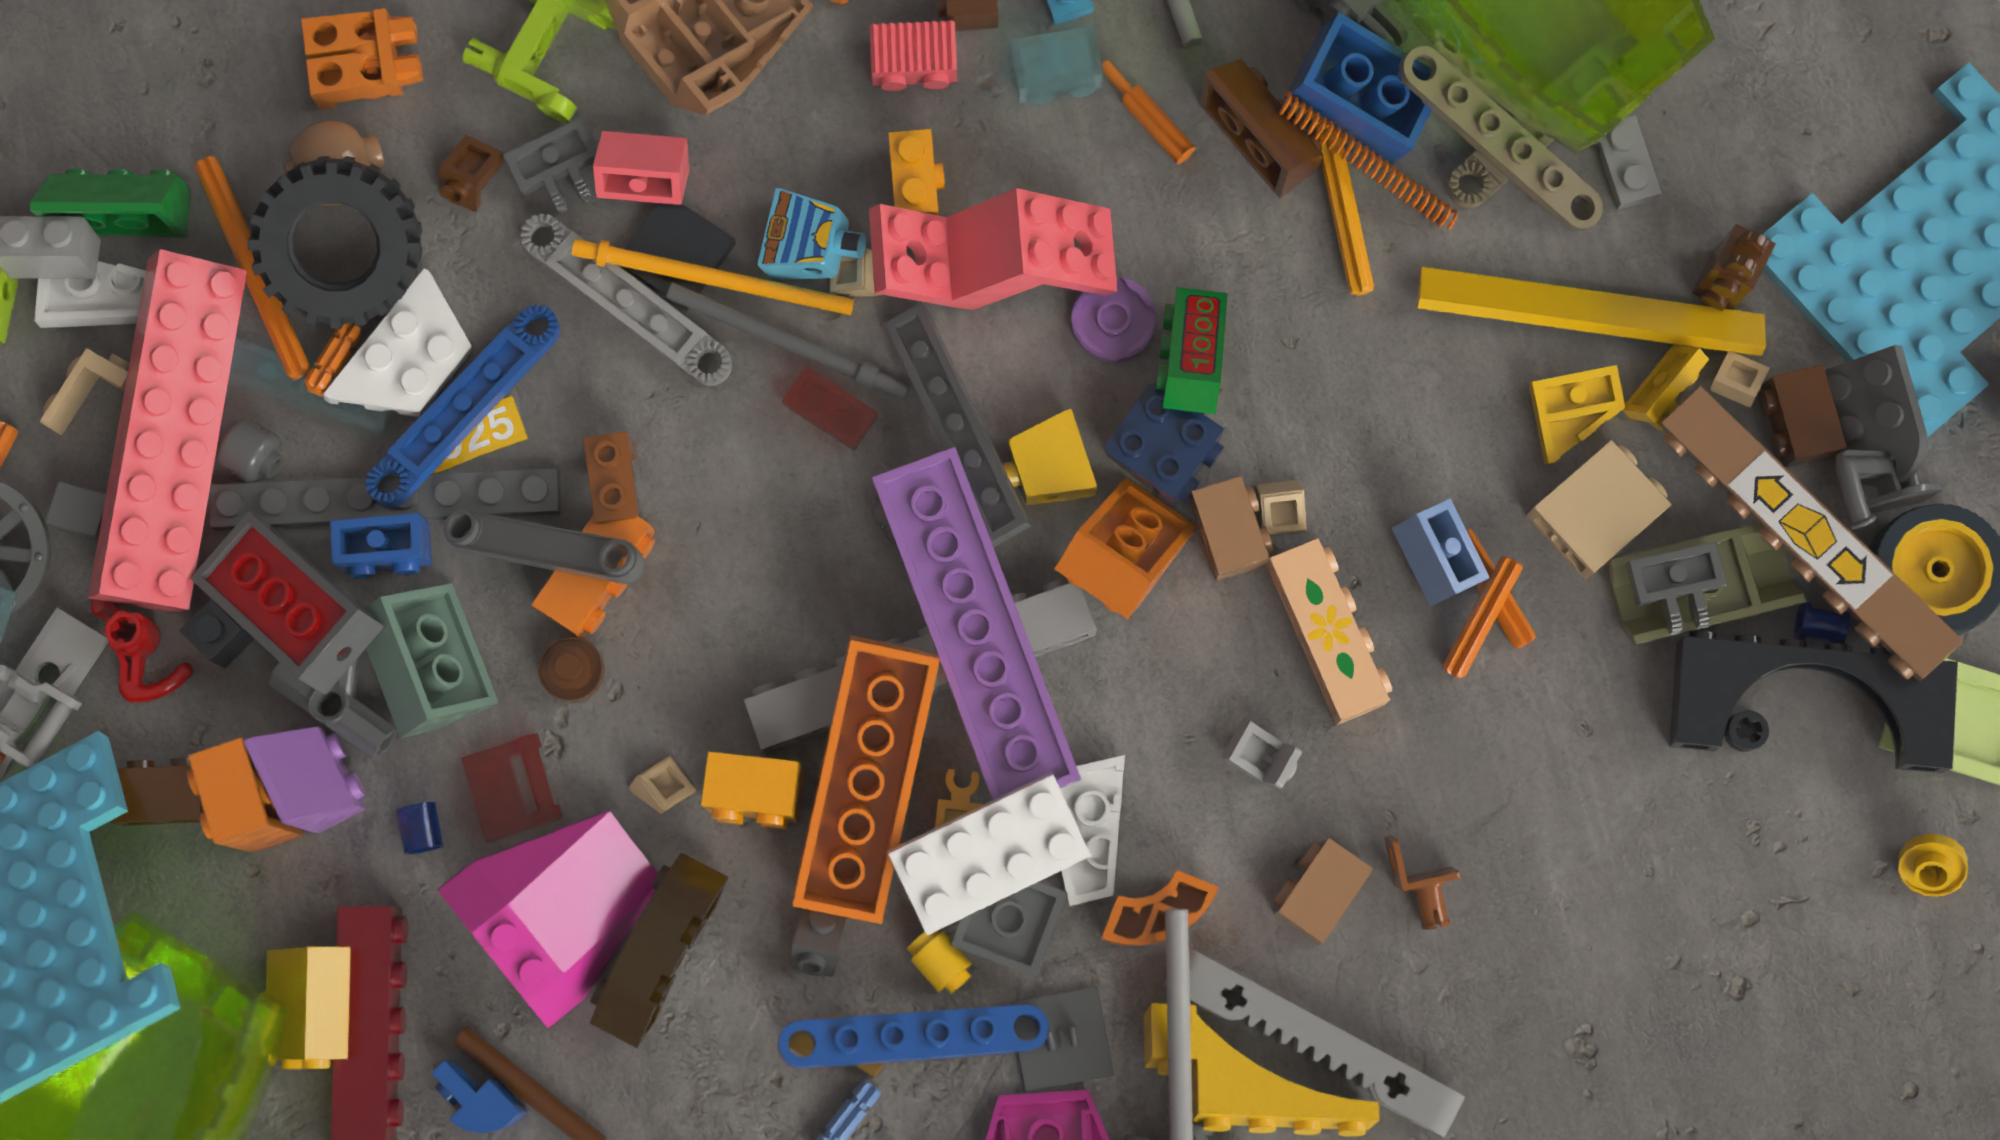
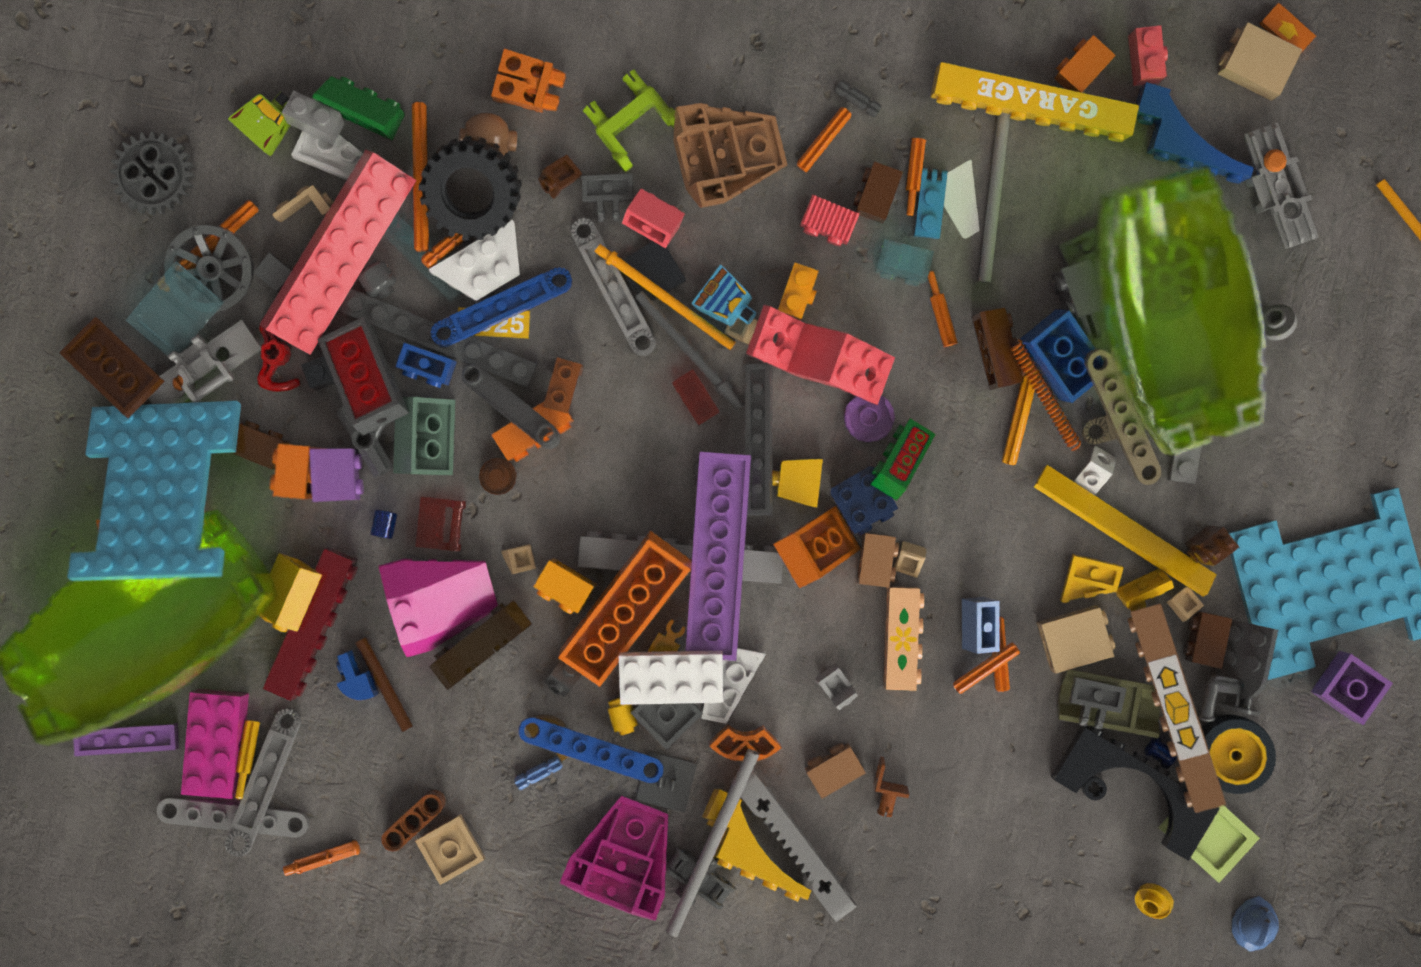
camera: 20 degrees right, 10 degrees up
(1501, 243) = (1096, 472): none -> white bracket

